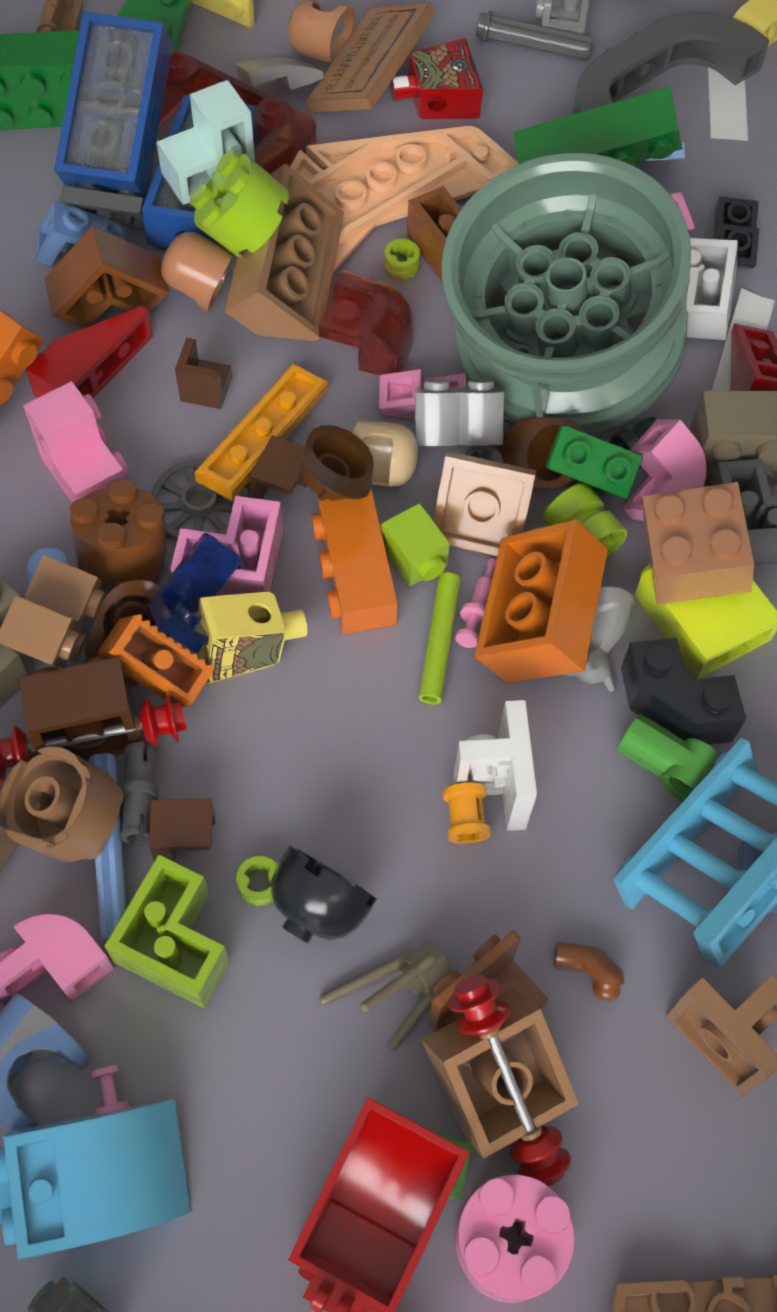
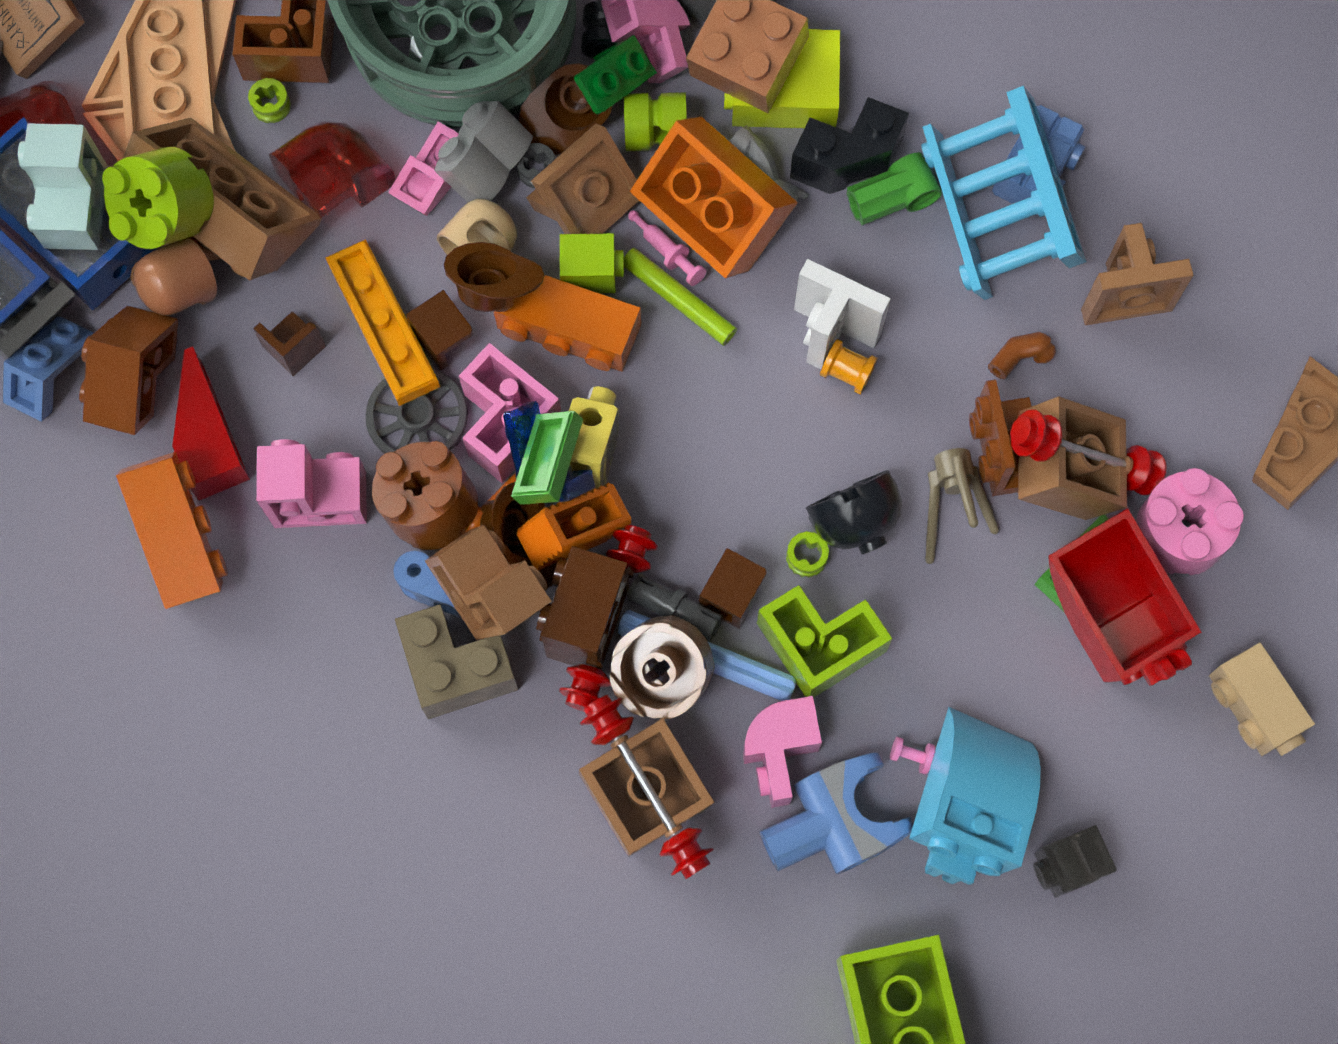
camera: 55 degrees left, 10 degrees up
(189, 591) = (547, 457): none -> bright green tile

